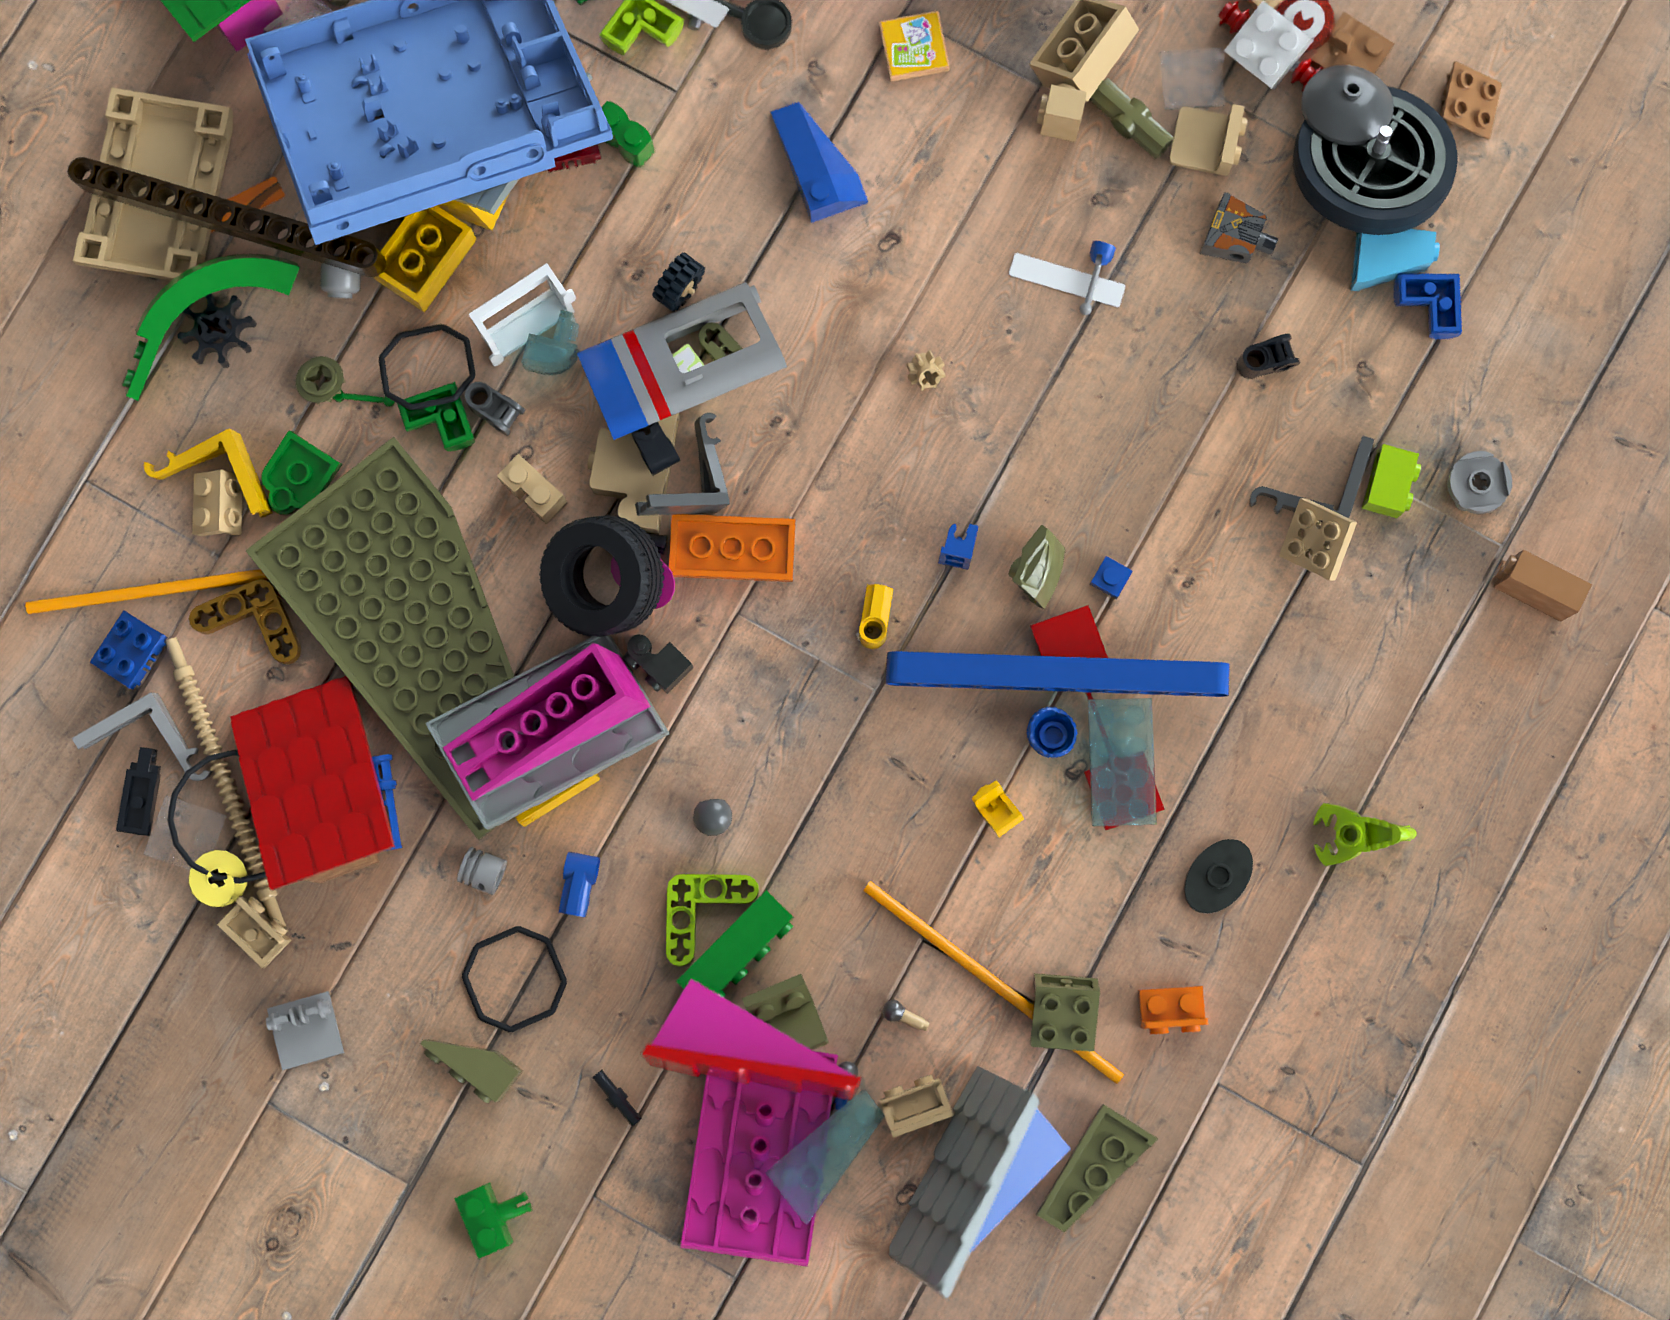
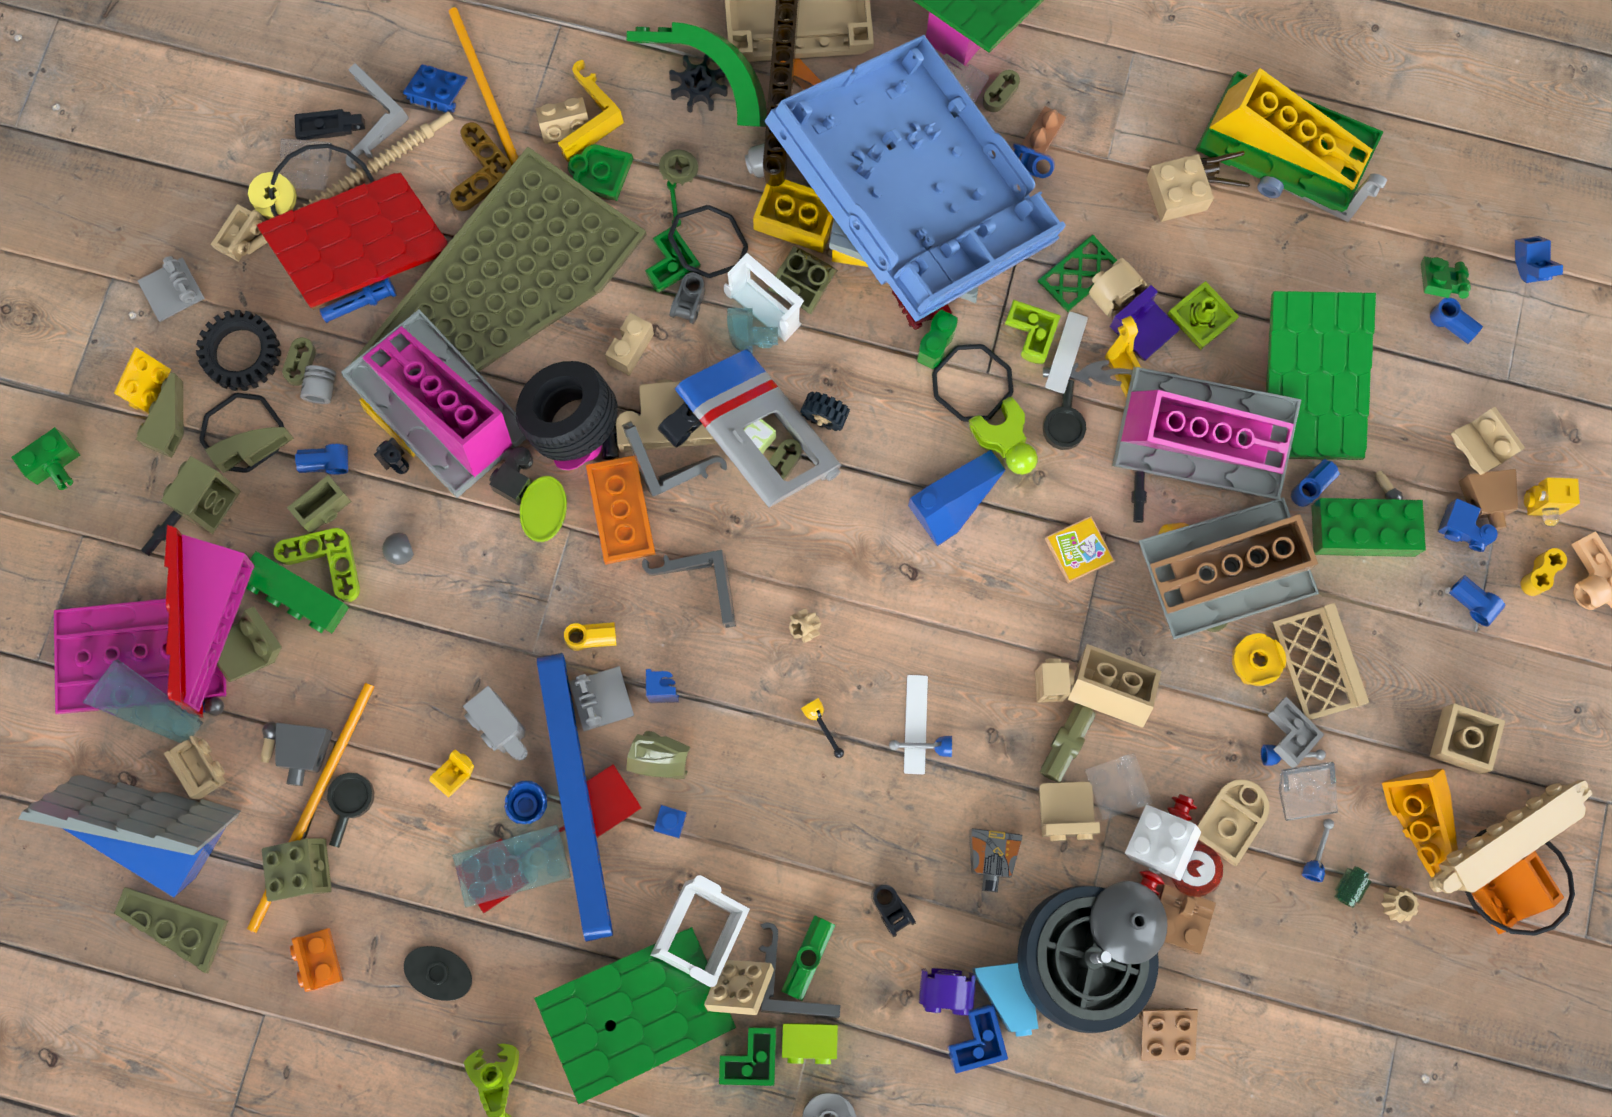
camera: 70 degrees right, 5 degrees down
(374, 948) = (225, 326): none -> black tyre
(422, 1081) = (141, 380): none -> yellow hinge
(440, 897) = (293, 360): none -> olive beam
(502, 263) = (805, 276): none -> olive slope
(539, 969) = (248, 446): none -> olive slope
(590, 1032) = (200, 494): none -> olive brick
(601, 796) = (390, 455): none -> black hinge
(636, 896) = (319, 504): none -> olive brick
(659, 77) = (991, 354): none -> black piece
(707, 637) = (543, 509): none -> lime piece
(764, 87) = (1007, 438): none -> lime piece
(841, 450) = (702, 561): none -> dark grey hinge
(926, 979) = (300, 750): none -> dark grey torso
(951, 621) = (601, 698): none -> light grey hinge
(955, 740) = (498, 723): none -> light grey hinge
(994, 935) = (349, 797): none -> pearl dark grey piece
(1025, 386) = (814, 711): none -> hinge
(1259, 542) = (711, 892): none -> white piece
(1315, 636) = (654, 1010): none -> green piece
(1317, 472) = (799, 974): none -> green piece
(1373, 318) = (947, 991): none -> dark purple brick
(1404, 542) = (757, 1066): none -> green brick

